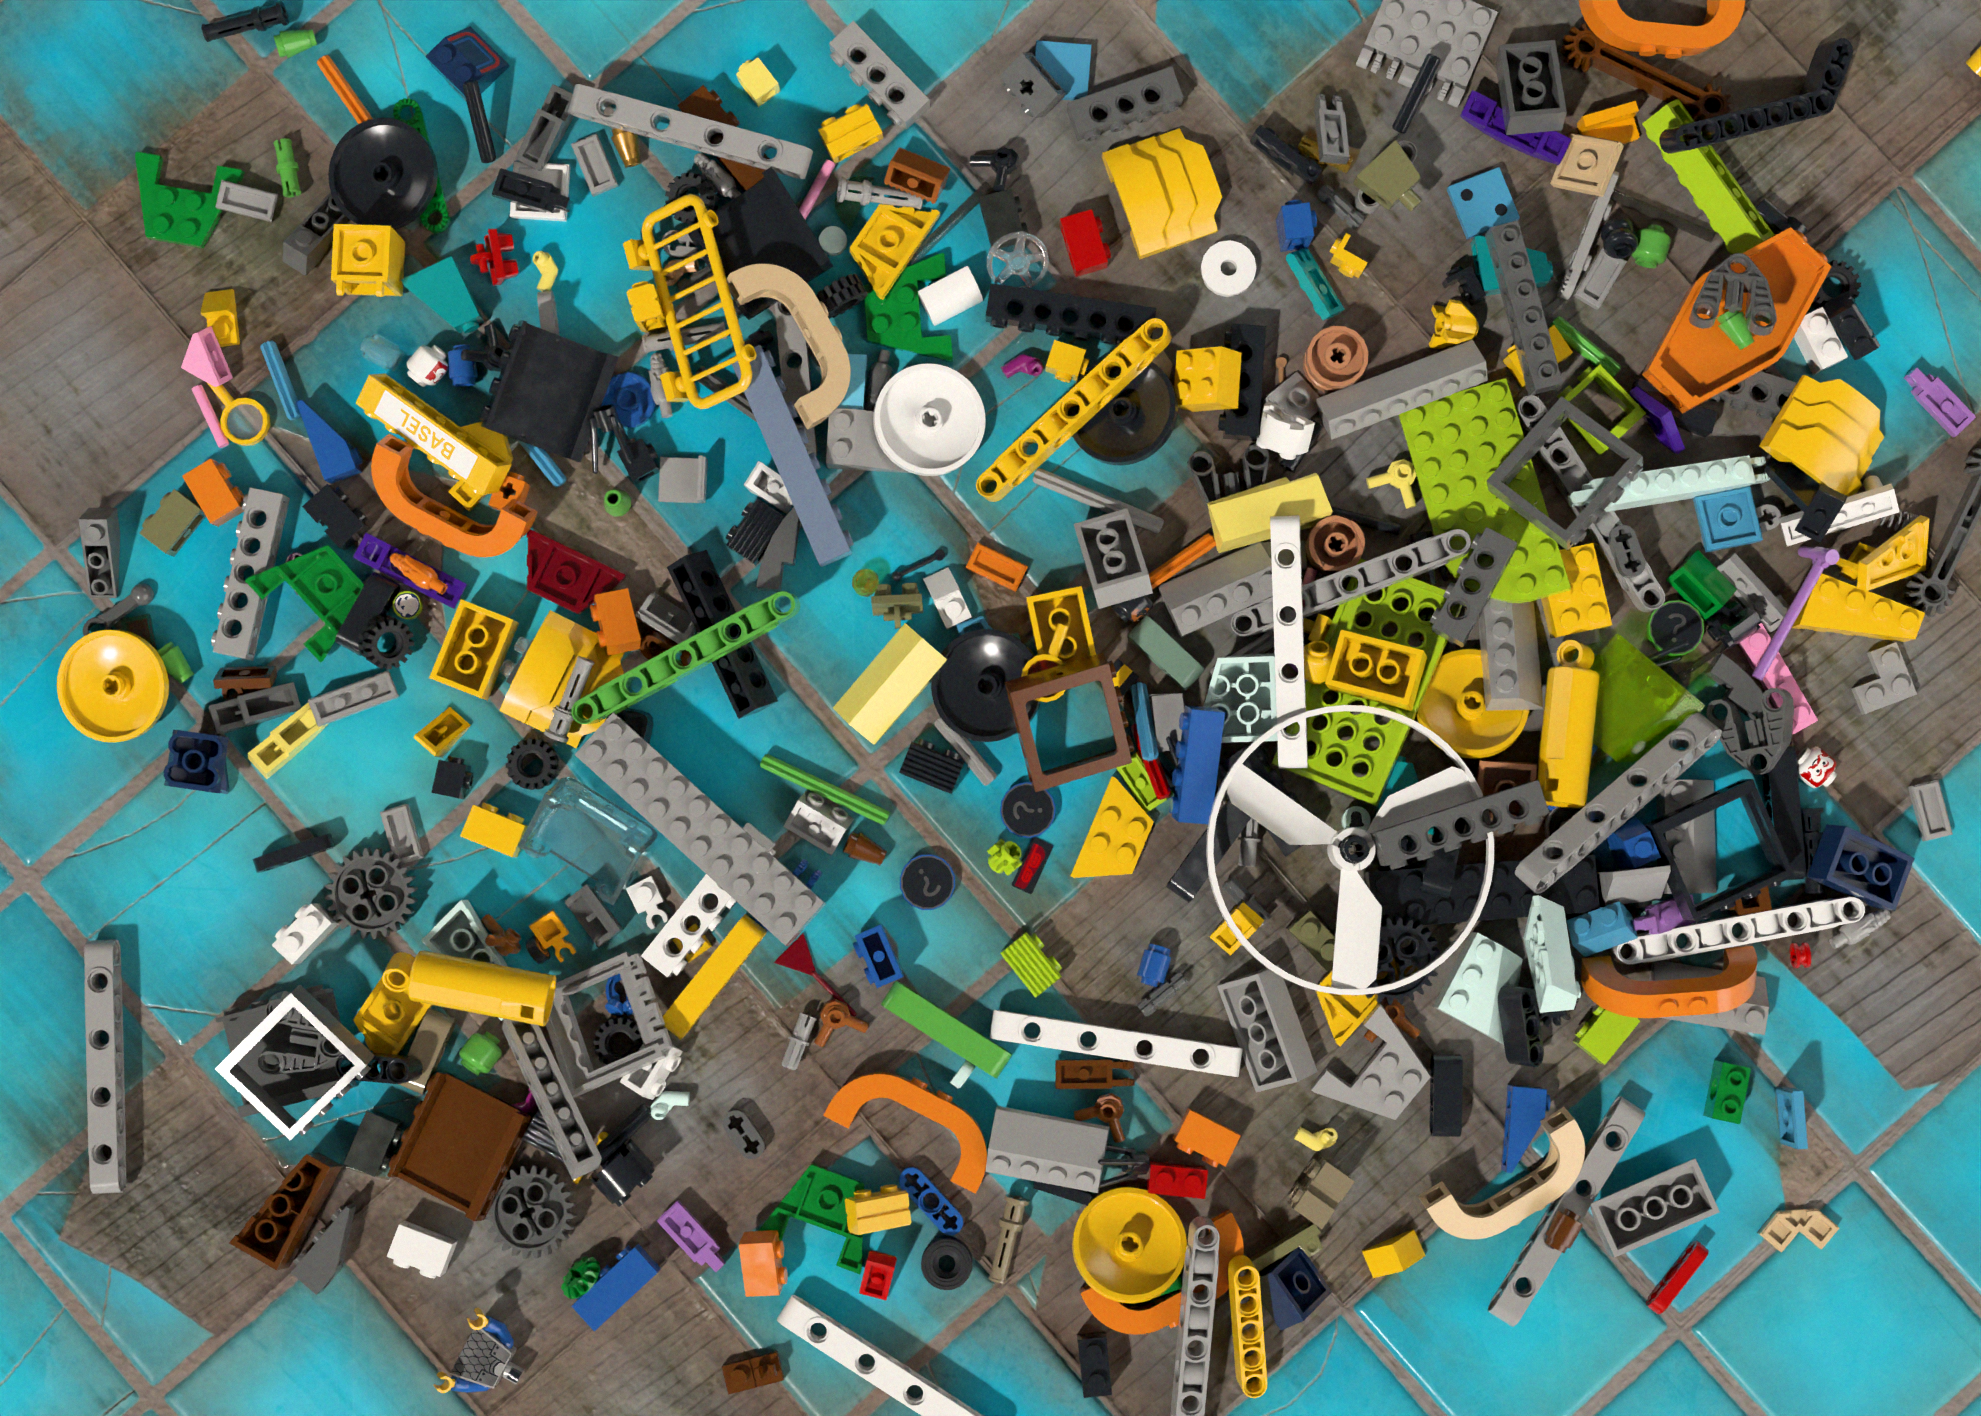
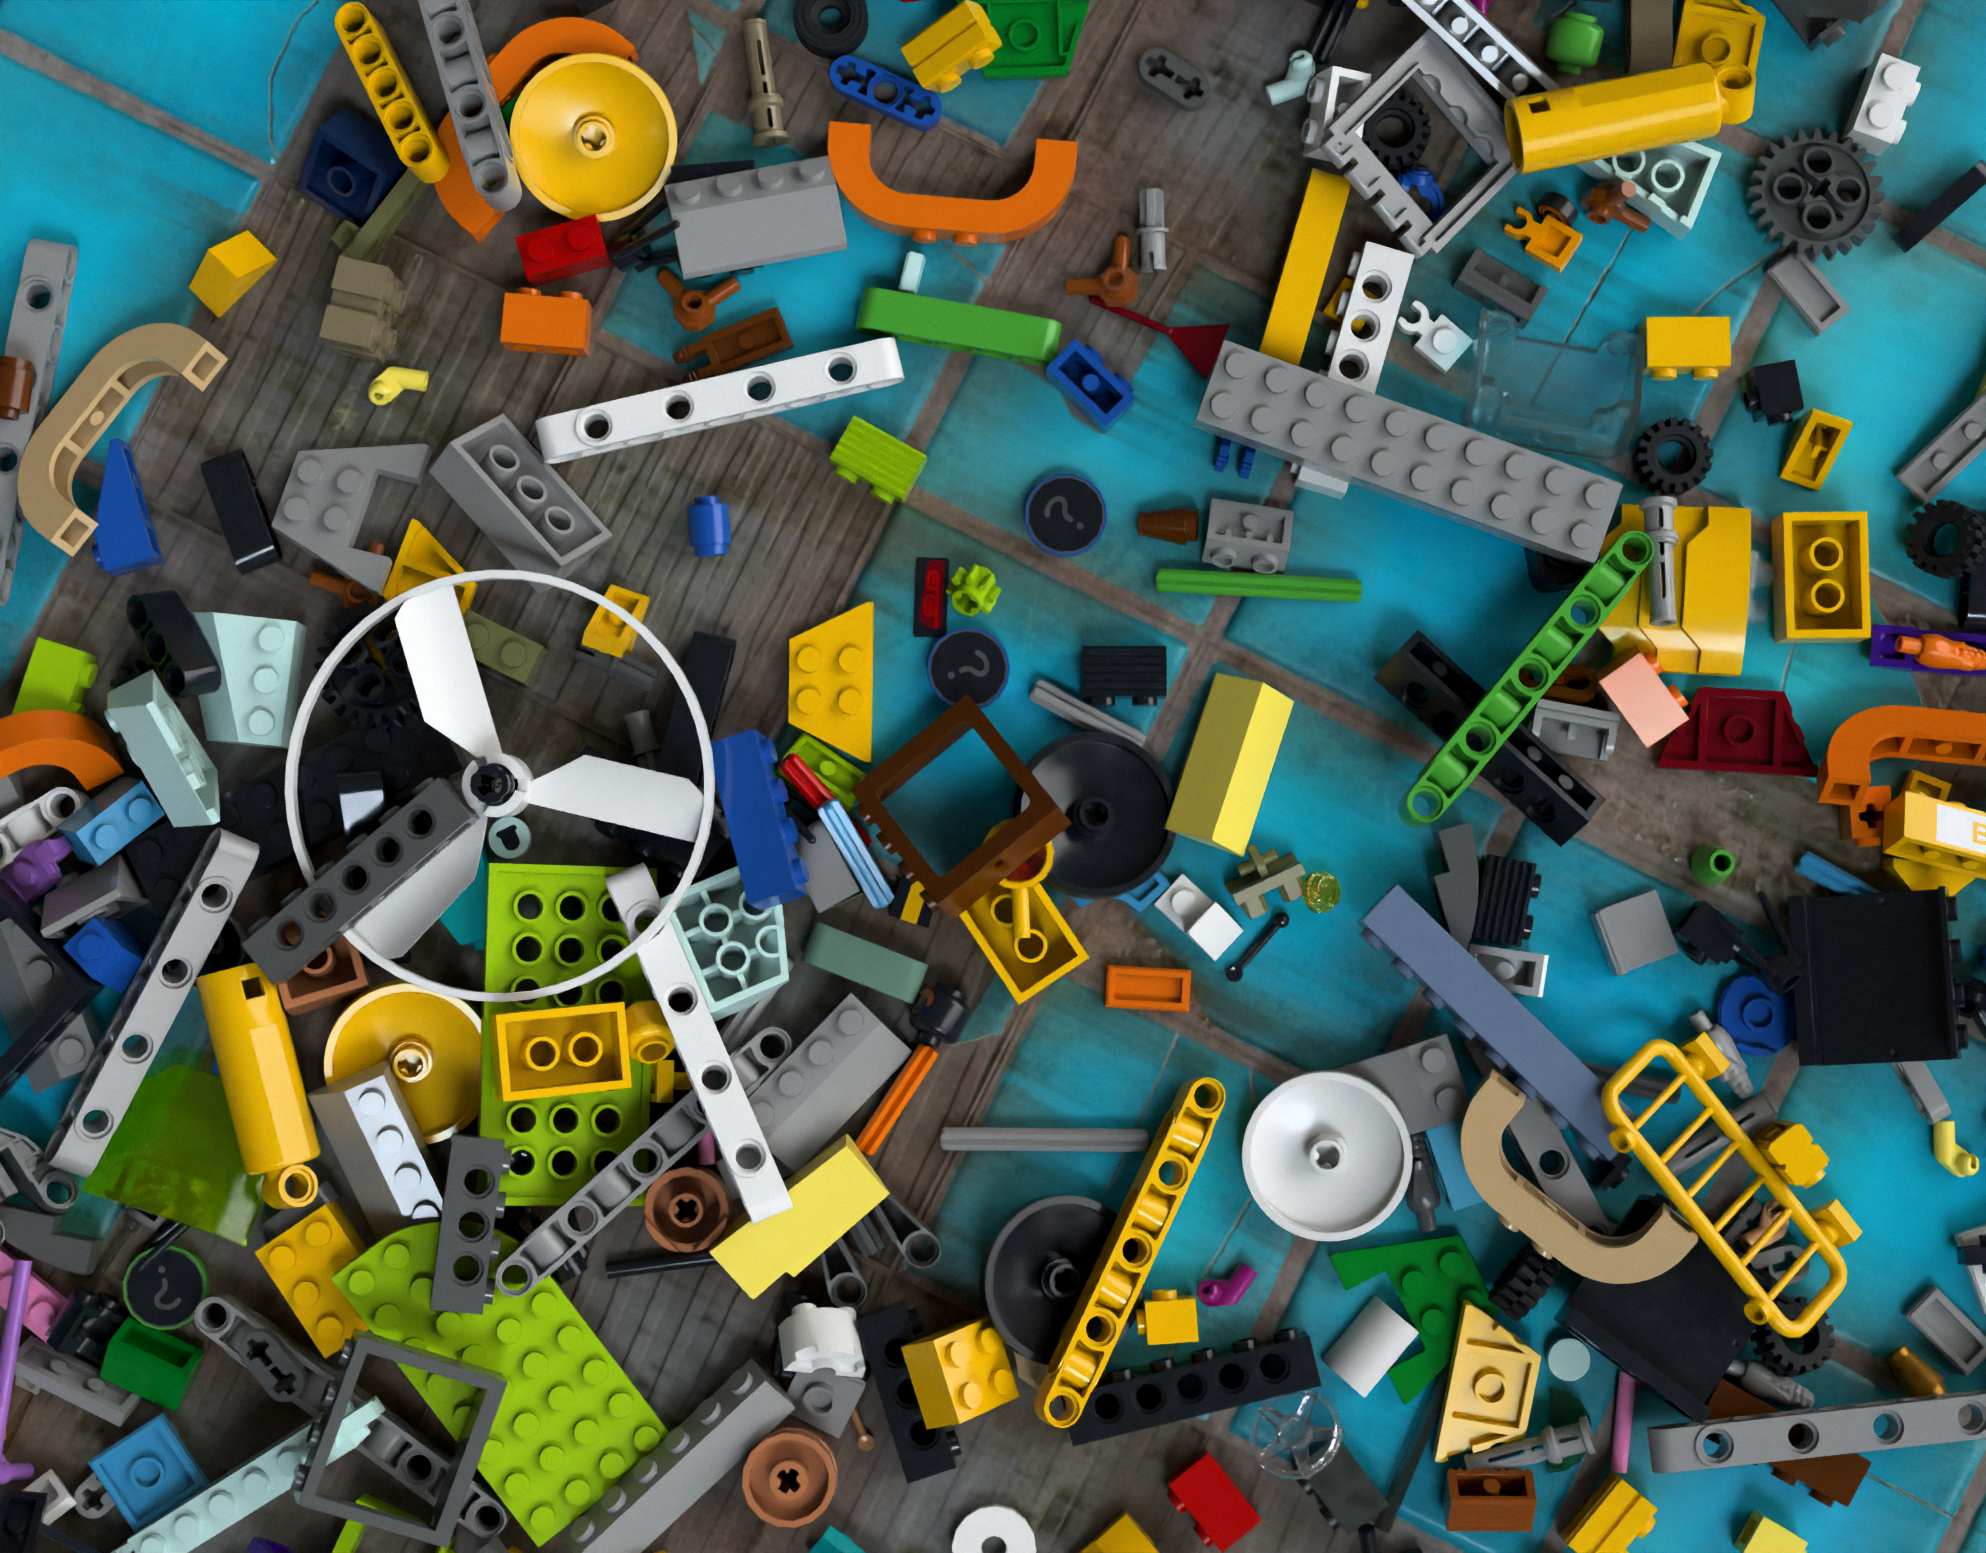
camera: 155 degrees right, 0 degrees up
(407, 605) = (1937, 605): tile -> none
(1113, 558) = (990, 1061): light grey brick -> none
(1162, 994) = (682, 493): dark grey axle -> none
(1400, 475) = (635, 1347): light yellow piece -> none

